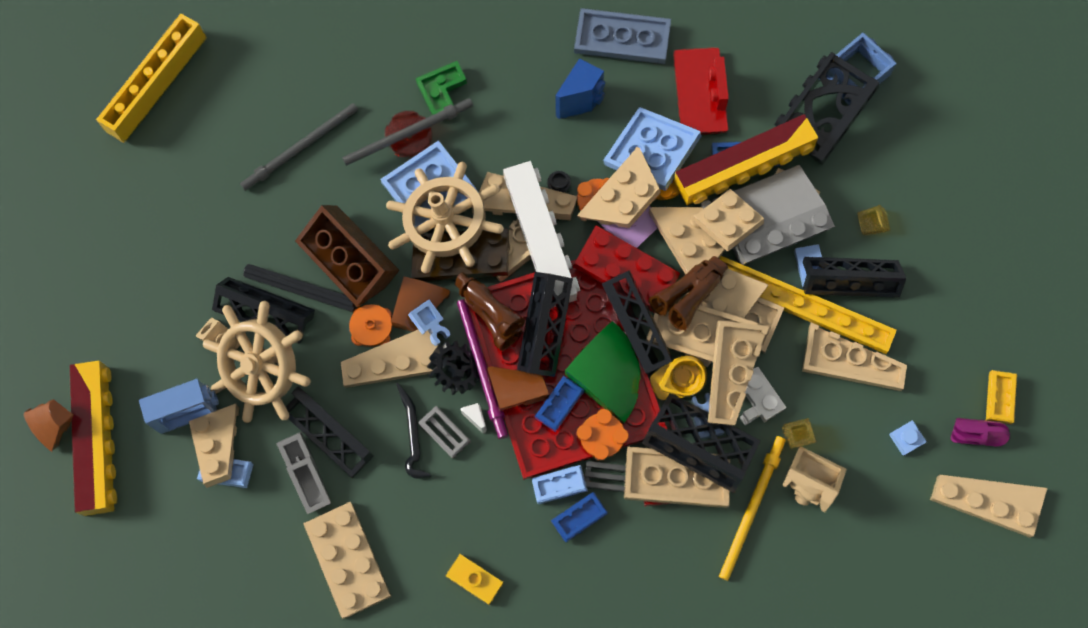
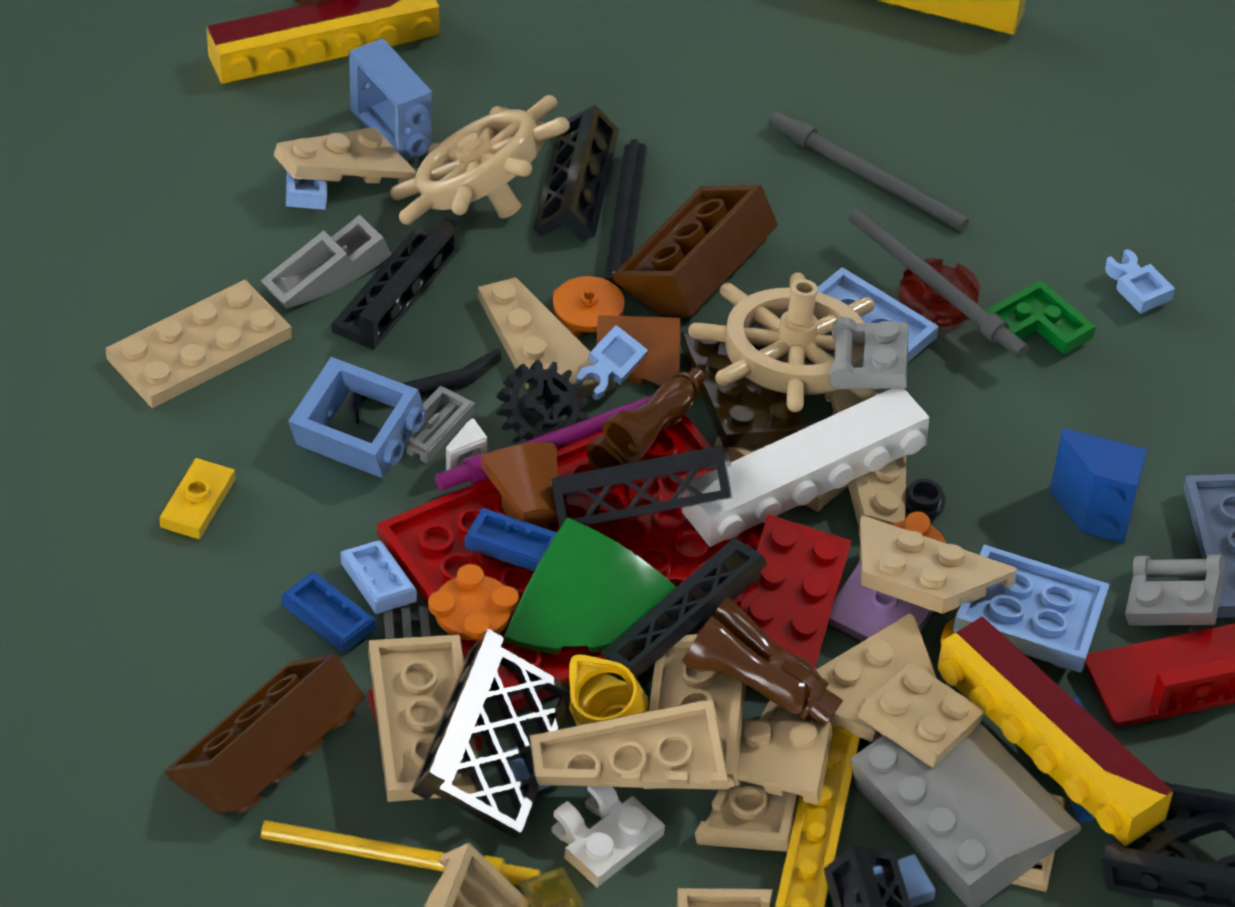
camera: 70 degrees right, 25 degrees down
(428, 28) = (1139, 286): none -> light blue plate
(454, 445) = (326, 396): none -> medium blue window
(480, 172) = (883, 354): none -> light grey plate
(657, 79) = (1175, 601): none -> light grey plate
(662, 567) = (267, 734): none -> reddish brown slope

